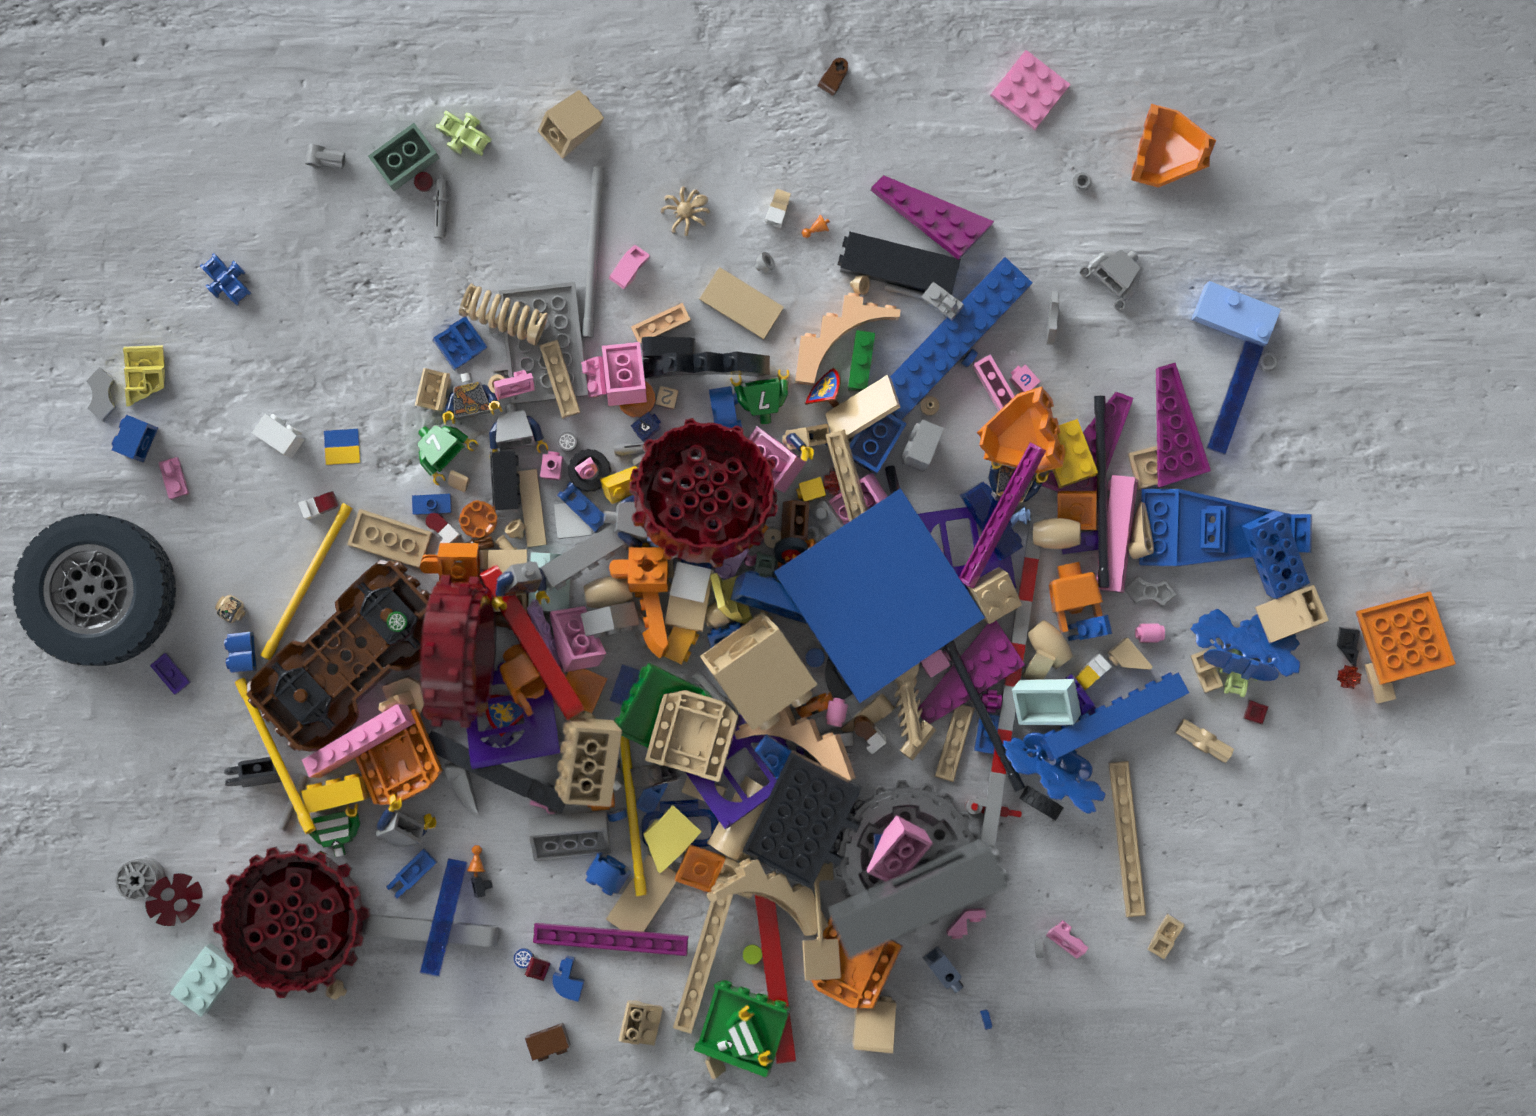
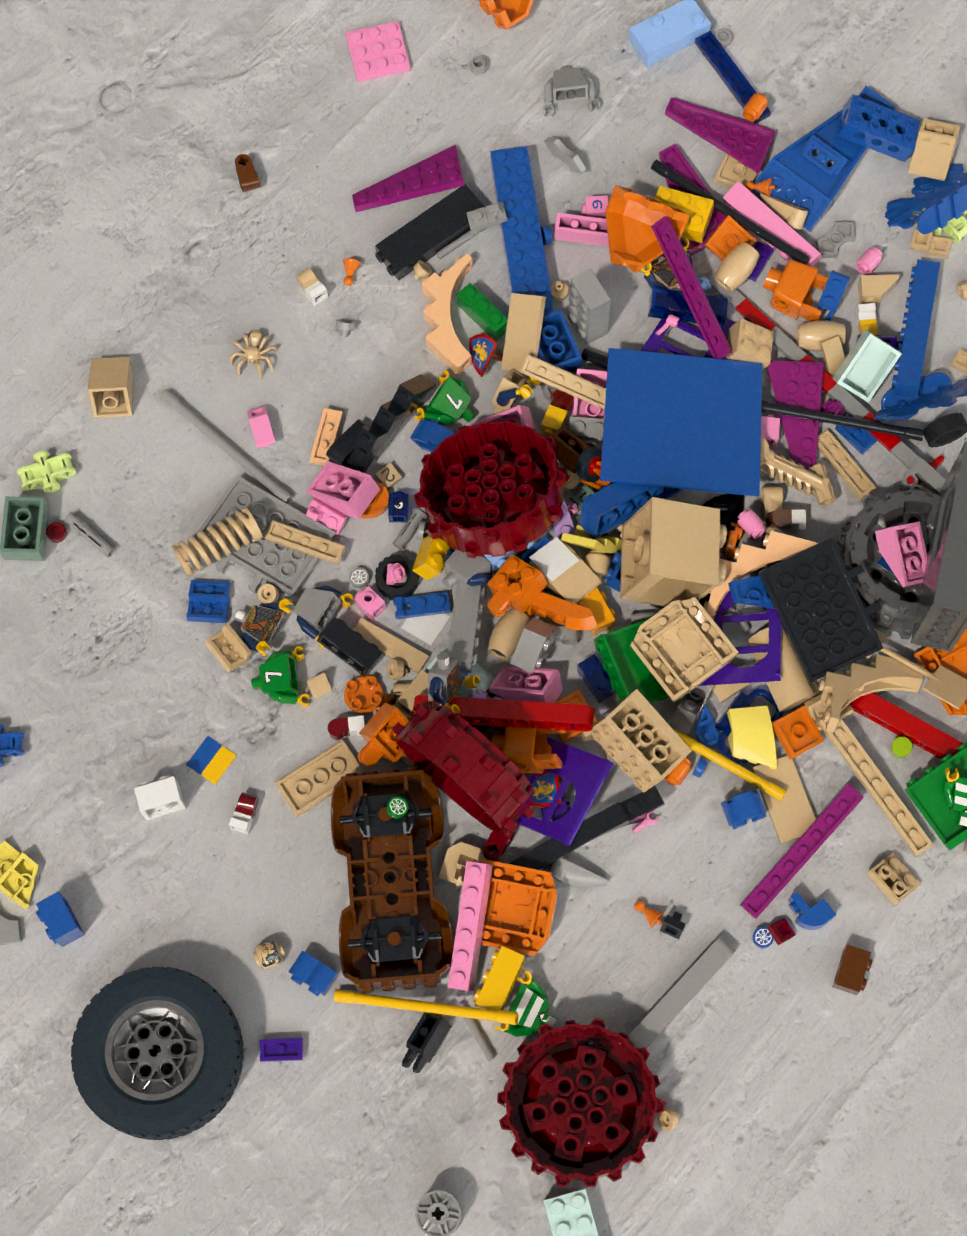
camera: 45 degrees left, 15 degrees down
(166, 908) = (481, 1210): dark red piece -> none
(173, 478) = (119, 918): bright pink hinge -> none
(273, 642) = (326, 940): yellow piece -> none
(400, 829) = (571, 950): light grey torso -> none
(413, 871) = (617, 973): blue hinge -> none
(431, 504) = (319, 721): blue plate -> none
(443, 917) = (678, 971): clear blue plate -> none
(514, 386) = (280, 577): bright pink hinge -> none
(569, 835) = (687, 818): light grey slope -> none
(741, 303) = (361, 367): tan tile -> none
(968, 517) = (671, 321): none -> bright pink hand
(1148, 500) = (764, 186): none -> orange piece
(1216, 439) = (755, 107): none -> orange brick

